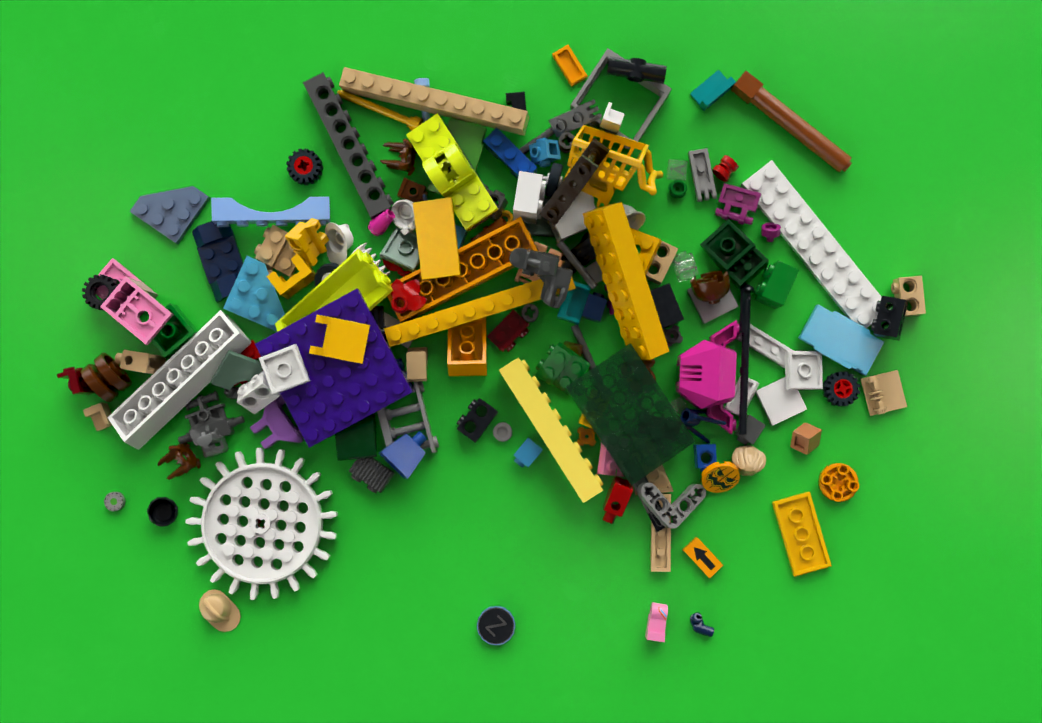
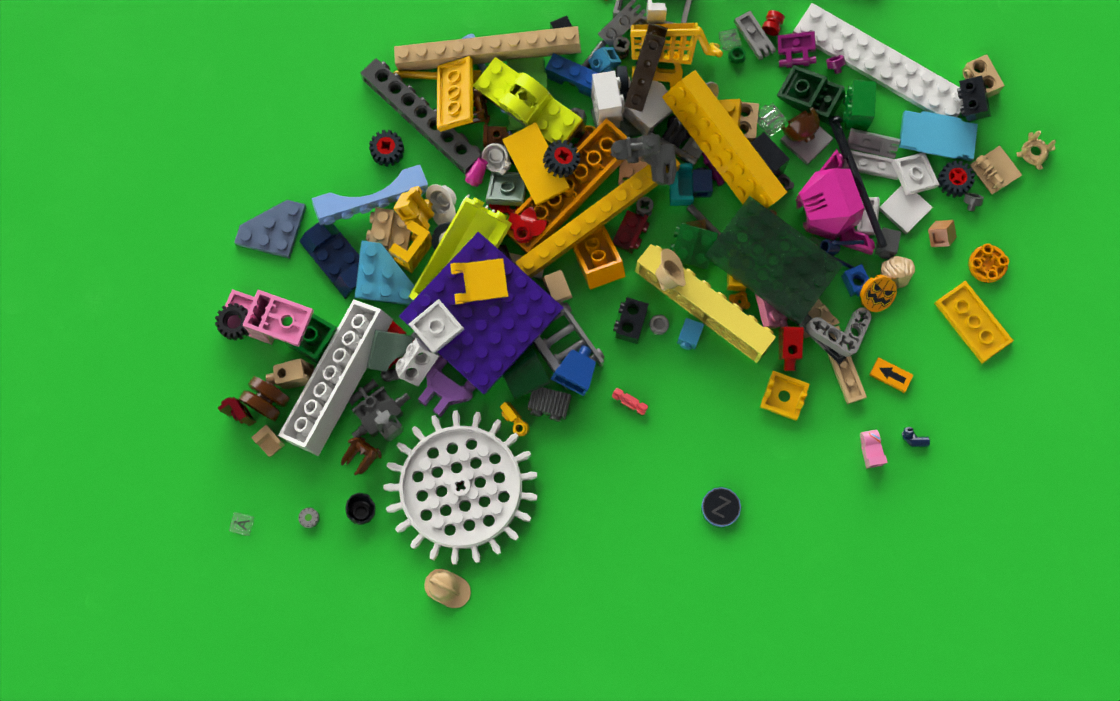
camera: 20 degrees left, 10 degrees down
(51, 485) = (241, 524): none -> clear tile
(333, 471) = (512, 415): none -> yellow plate
(385, 137) = (455, 93): none -> yellow tile
(448, 496) = (629, 401): none -> coral axle
(456, 249) = (561, 166): none -> black wheel
(526, 393) = (671, 271): none -> tan piece
(607, 545) = (797, 390): none -> yellow piece
(774, 325) = (872, 143): none -> light grey hinge
(849, 416) = (973, 200): none -> dark grey tile
(921, 383) = (1034, 142): none -> tan piece

